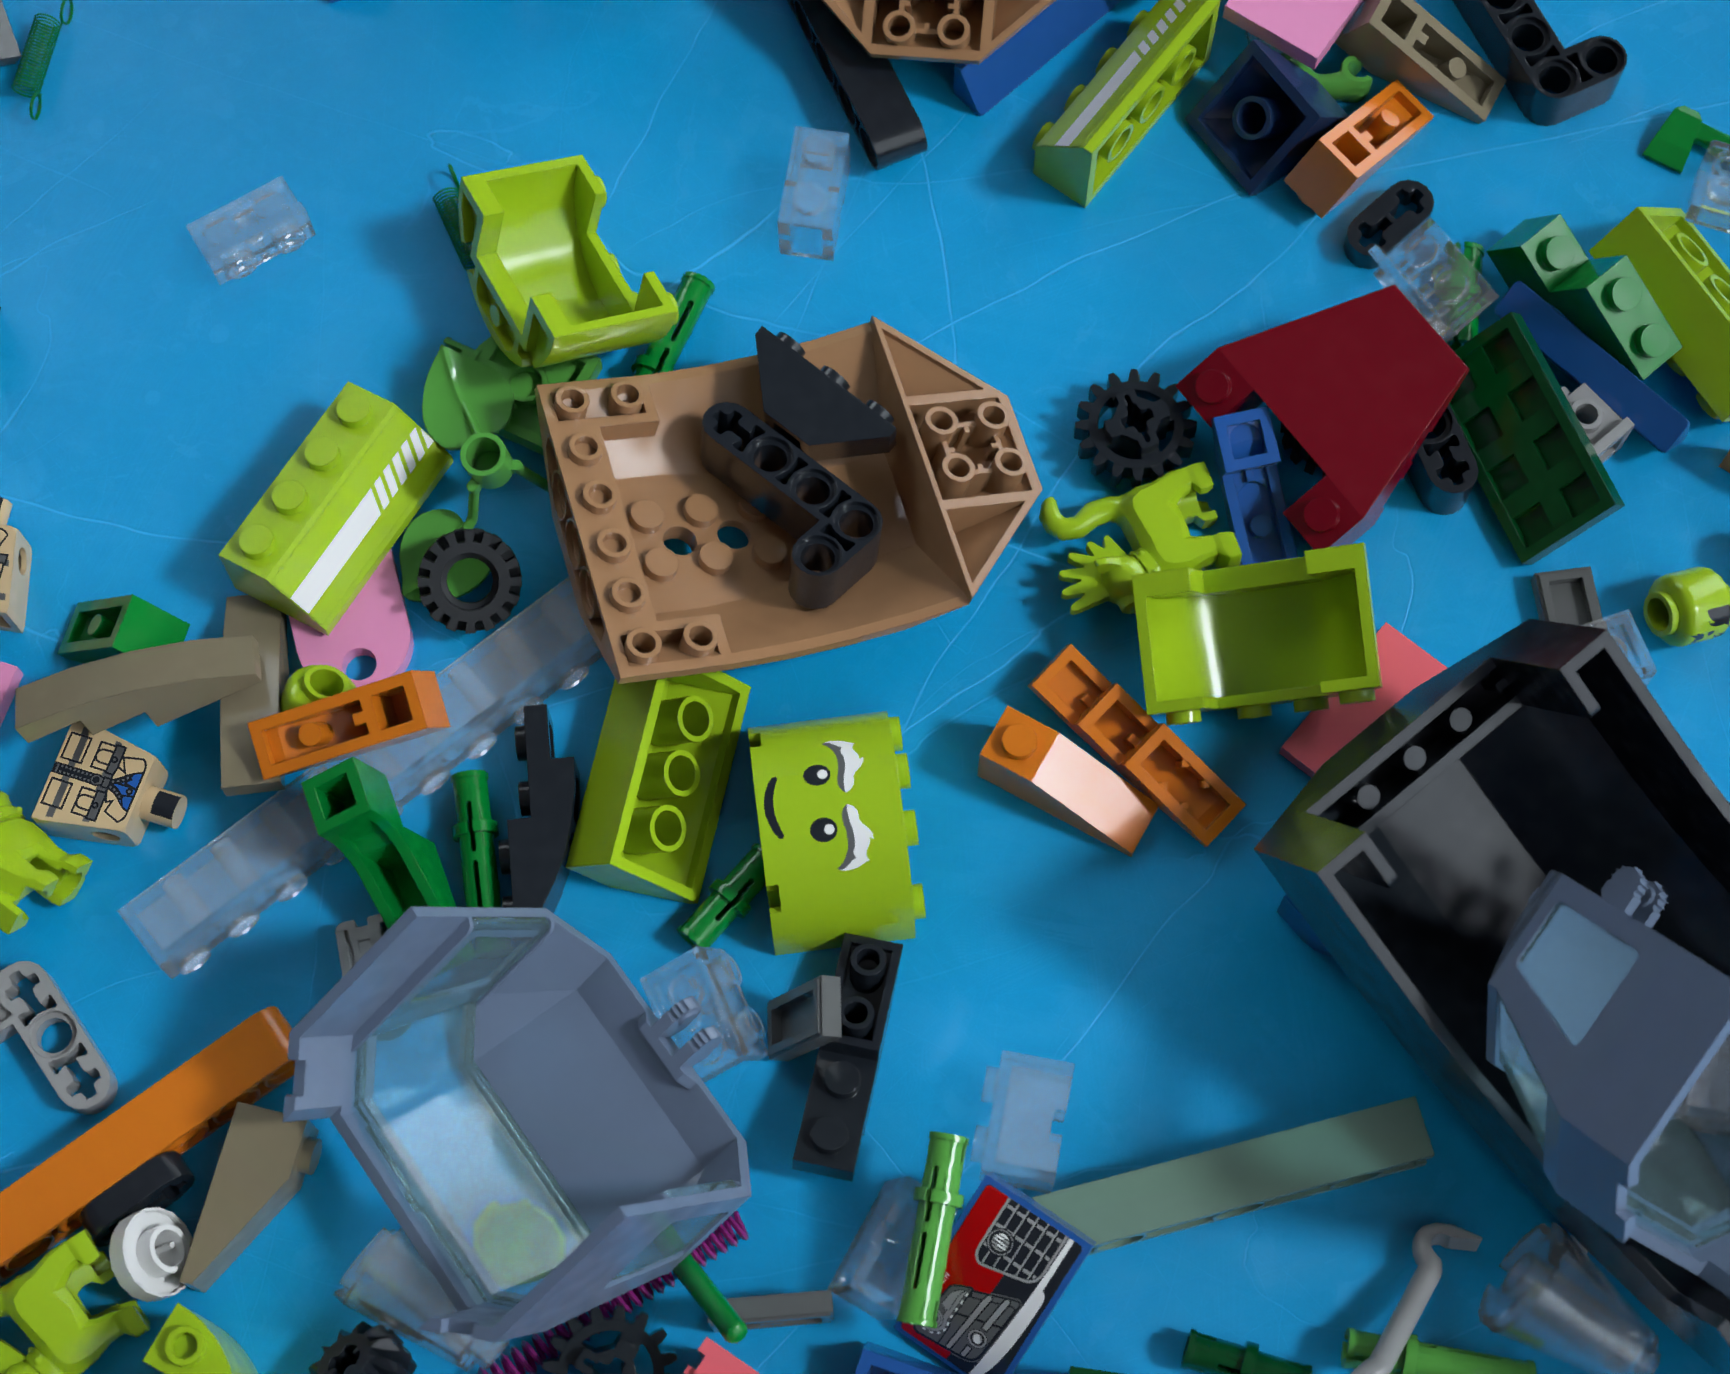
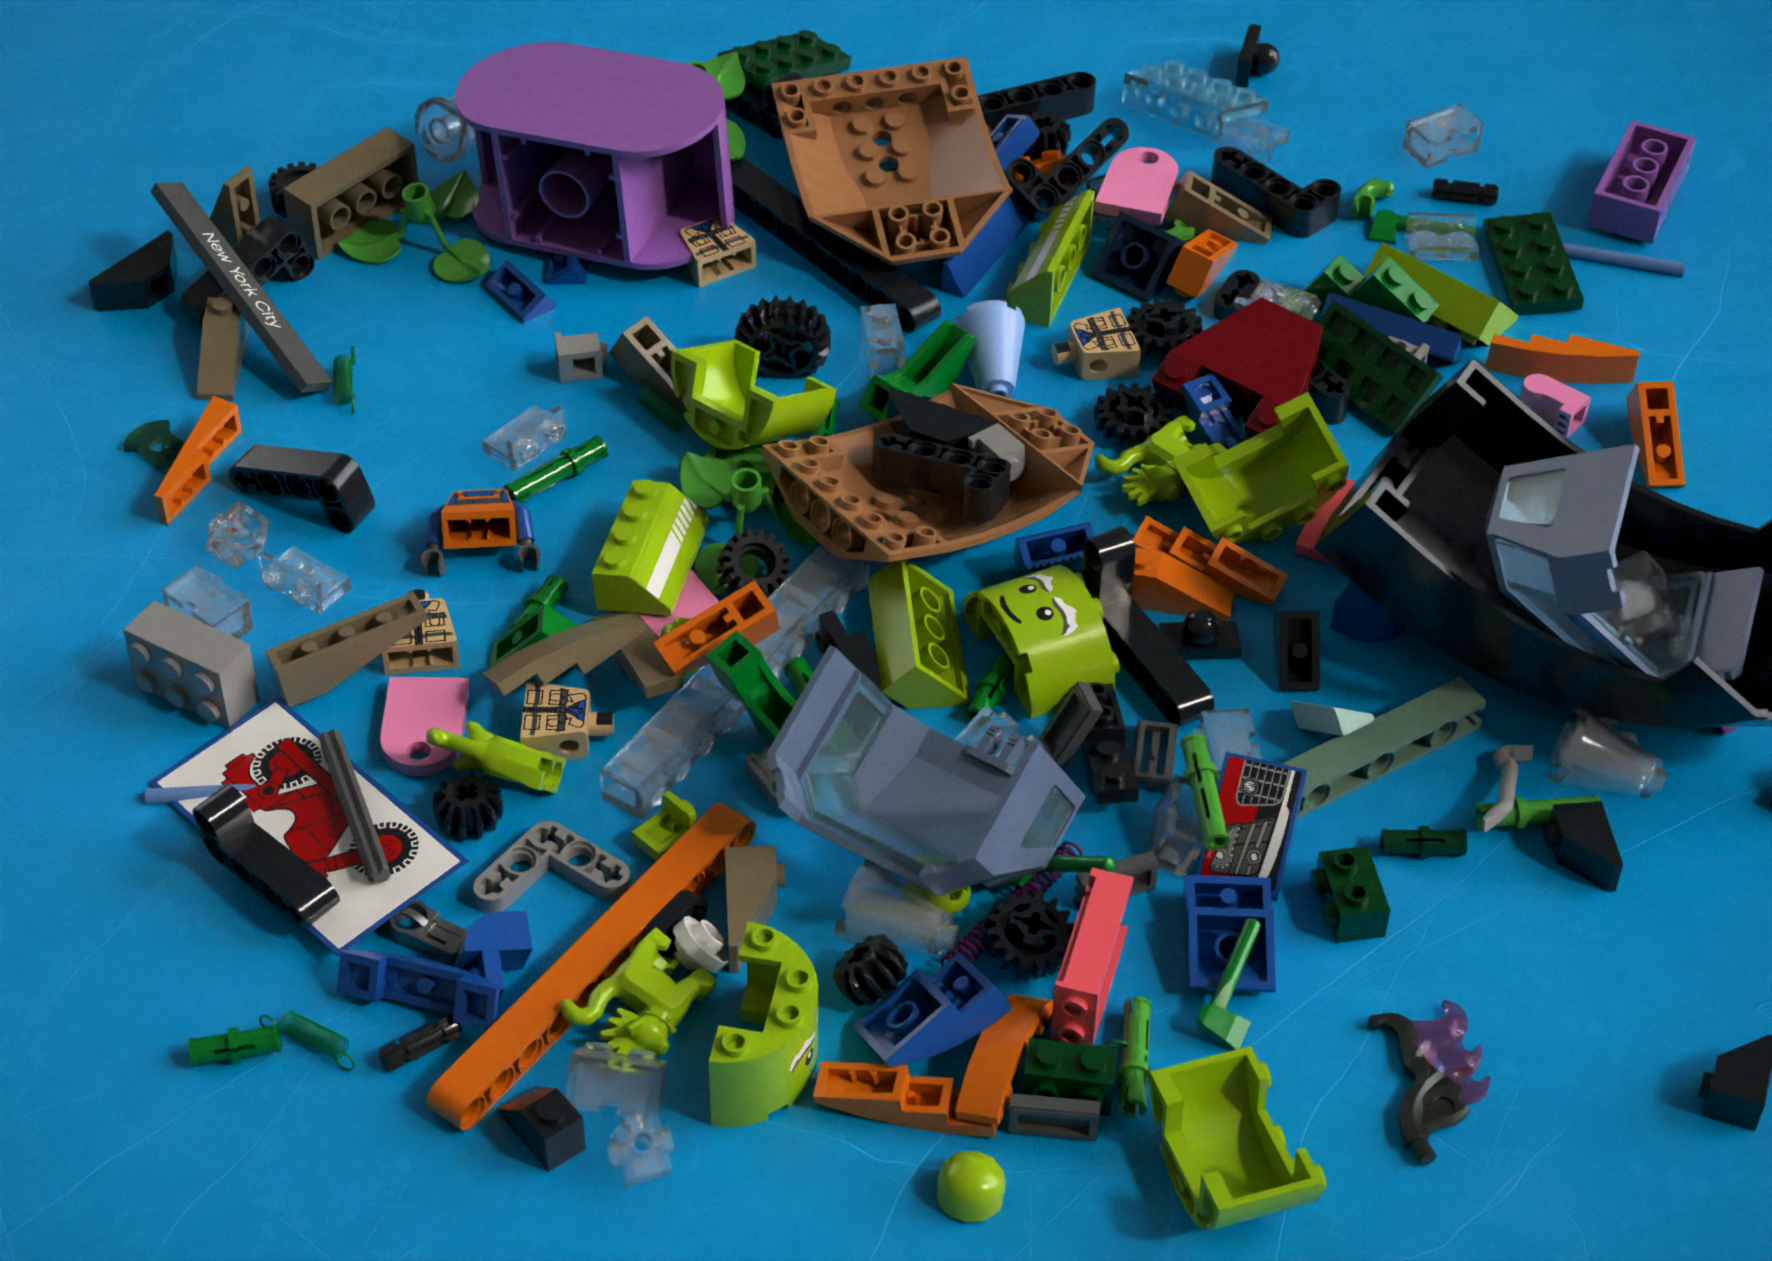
camera: 20 degrees left, 25 degrees down
(121, 390) = (478, 521): none -> torso
(161, 559) = (548, 594): none -> green pin
(182, 1027) = (665, 827): none -> lime bracket
(260, 313) = (569, 463): none -> green pin
(373, 102) = (579, 356): none -> light grey brick
(466, 130) = (647, 353): none -> dark tan slope
(662, 156) = (784, 332): none -> black gear
(845, 281) = (925, 372): none -> green arch
(884, 478) = (1000, 443): none -> light grey brick
(899, 1129) = (1151, 777): none -> dark grey tile
(909, 682) = (1052, 548): none -> blue brick
(967, 254) = (998, 345): none -> light blue cone
(987, 946) = (1132, 635): none -> black beam
(1070, 885) = (1203, 636): none -> black tile
(1136, 280) = (1100, 347): none -> tan torso
(1196, 1109) = (1329, 719): none -> light aqua slope
(1201, 953) = (1297, 649): none -> black slope
(1253, 244) = (1163, 325): none -> black gear
(1679, 63) = (1366, 195): none -> bright green piece

